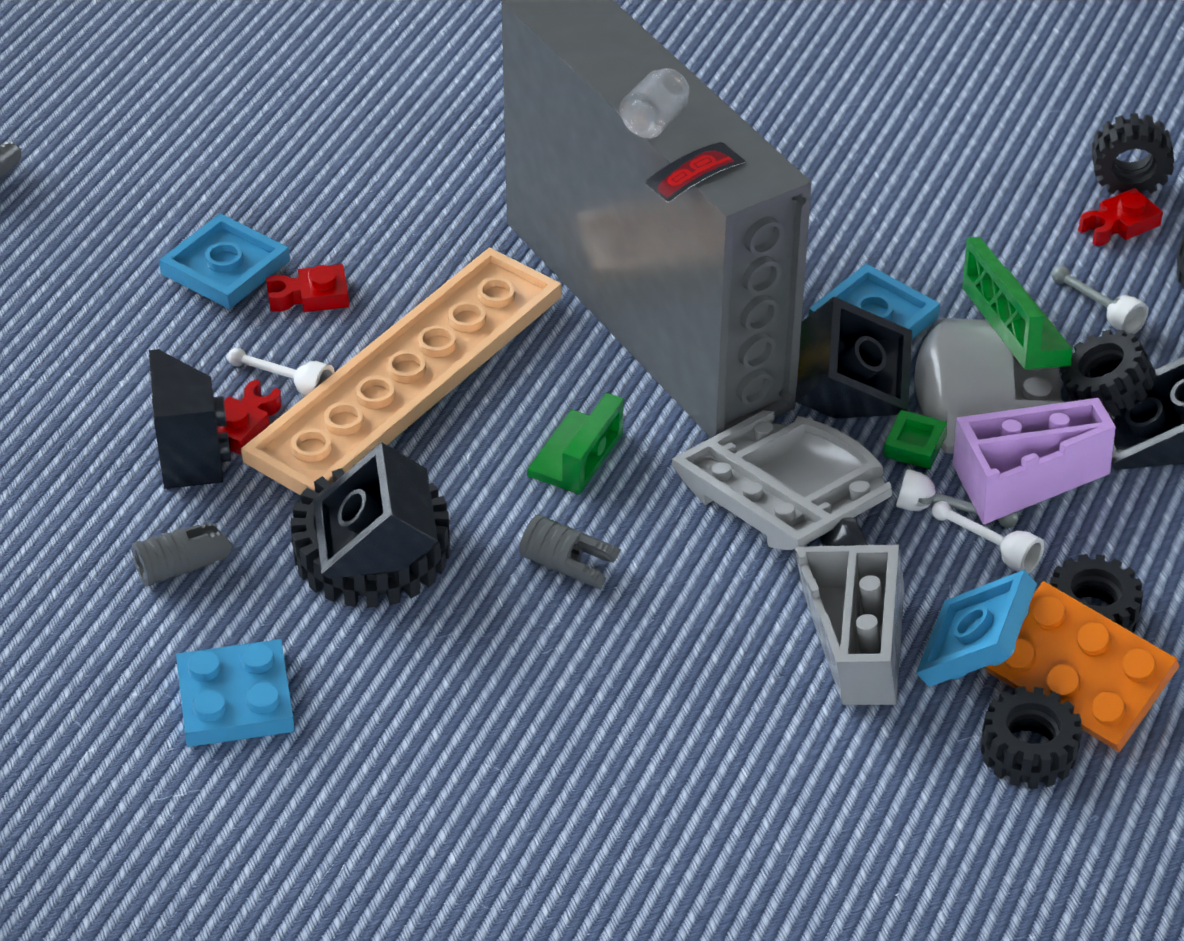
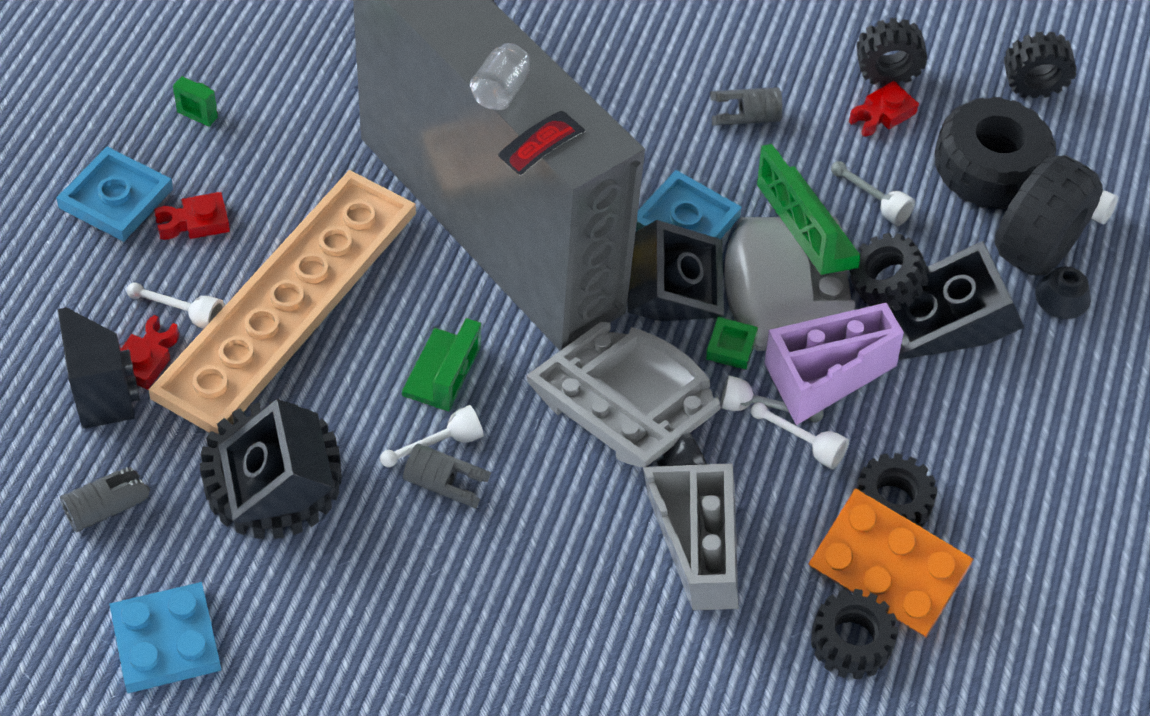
camera: 10 degrees left, 10 degrees up
(323, 175) = (195, 101): none -> green plate
(592, 505) = (462, 426): none -> white hinge
(965, 205) = (754, 106): none -> dark grey hinge
(977, 629) = (802, 535): dark azure plate -> none

